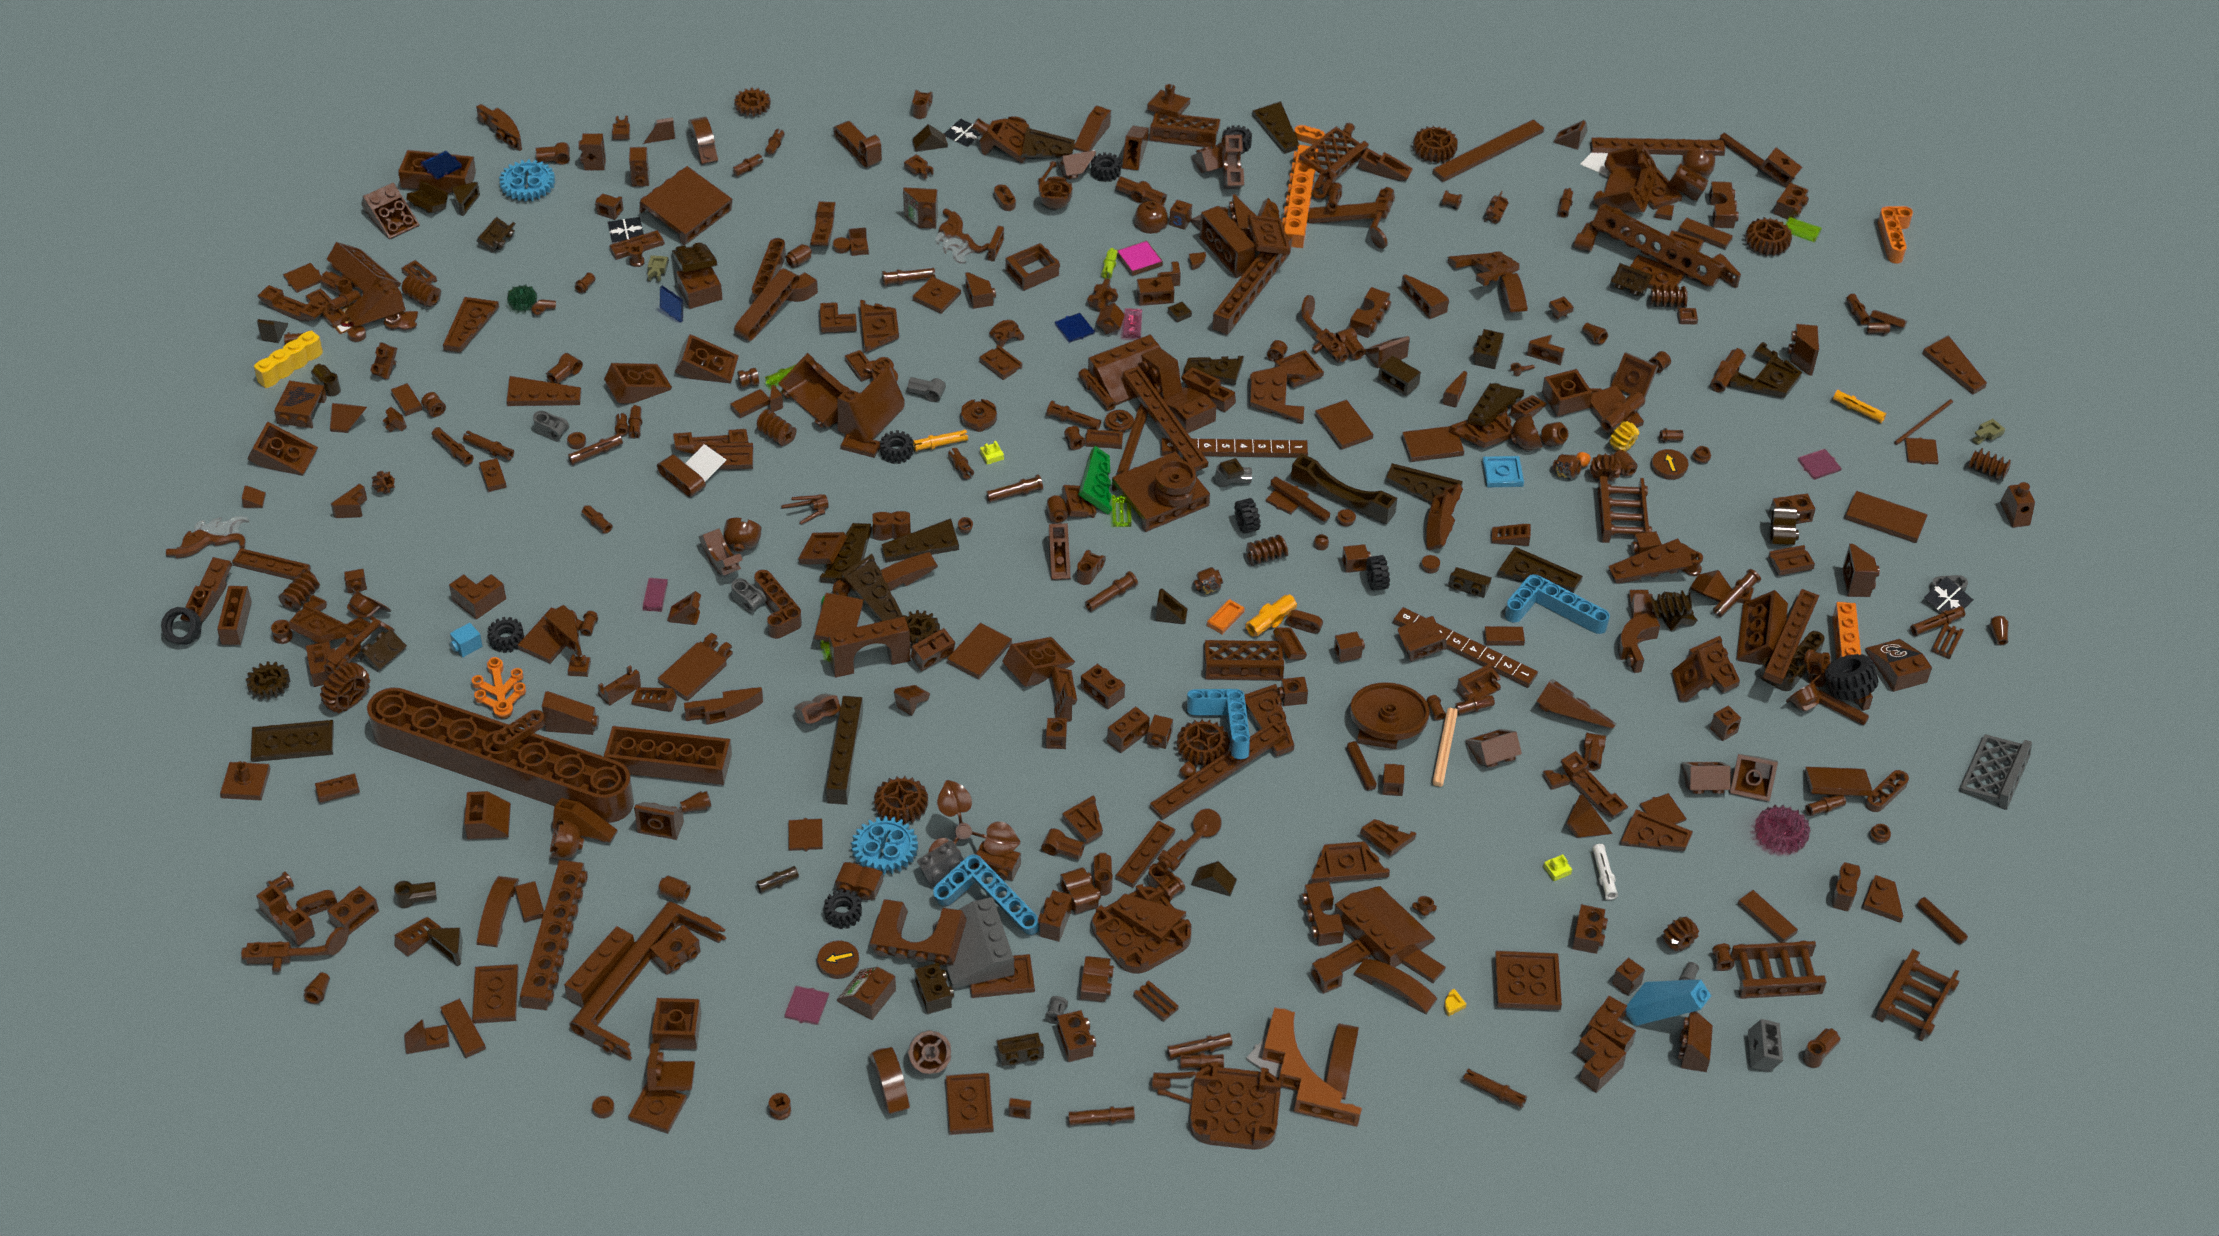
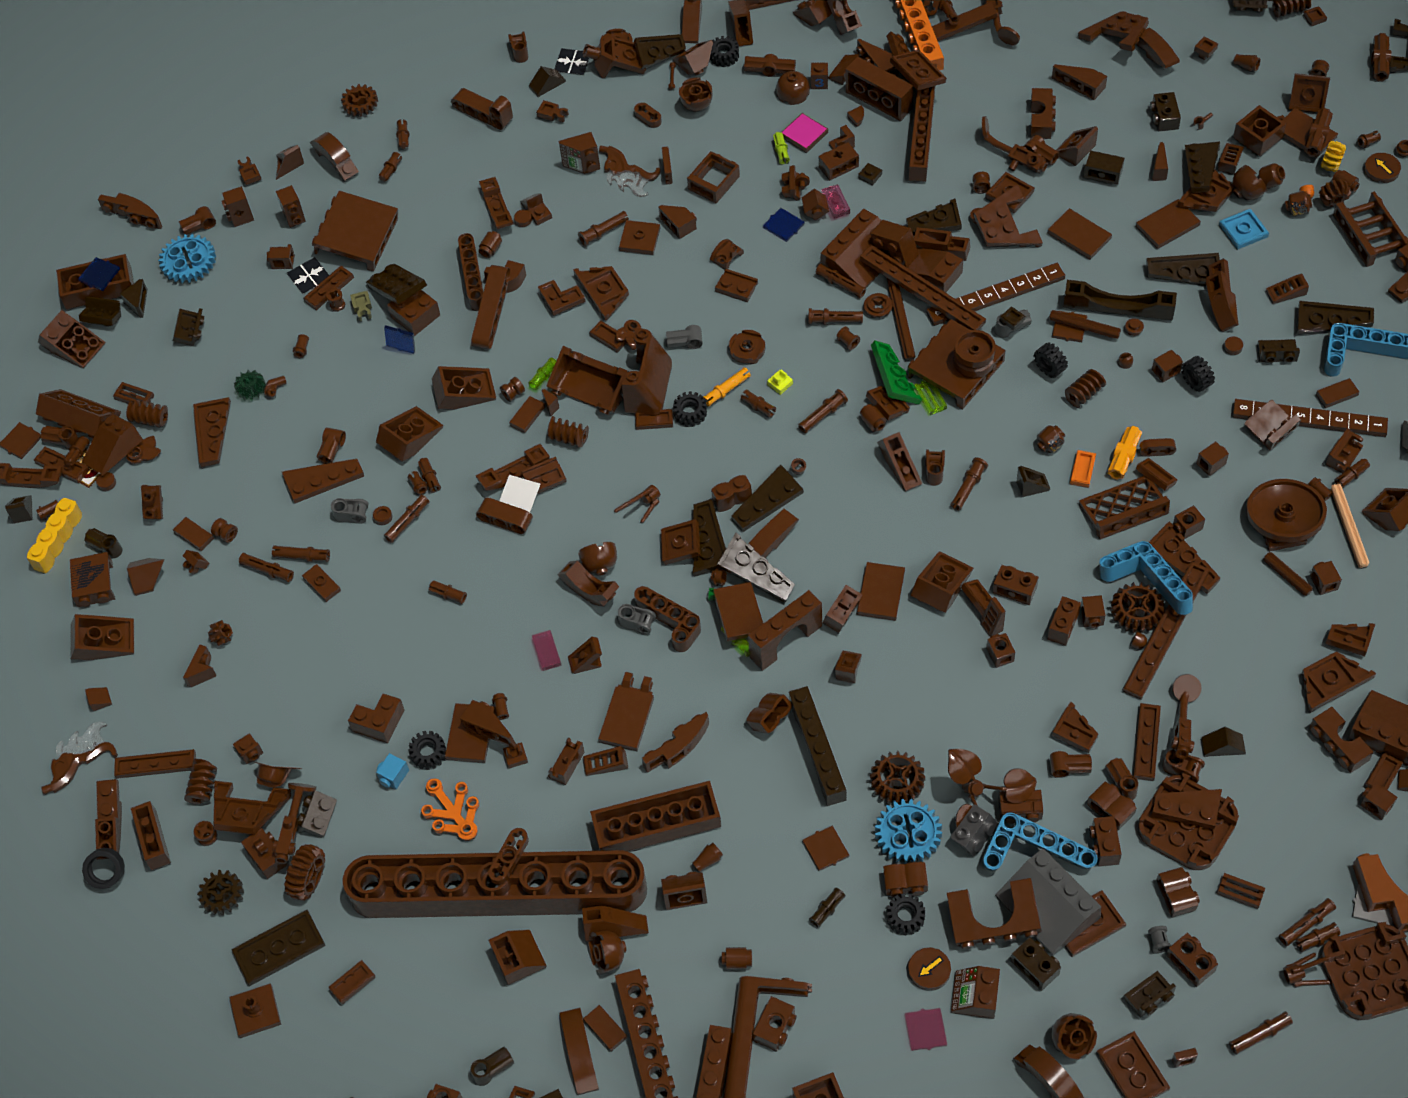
camera: 15 degrees left, 10 degrees up
(568, 715) = (539, 814): reddish brown slope -> none
(921, 626) = (816, 584): dark brown gear -> none
(1104, 439) = (874, 328): reddish brown tile -> none
(1543, 349) = (1216, 96): reddish brown slope -> none

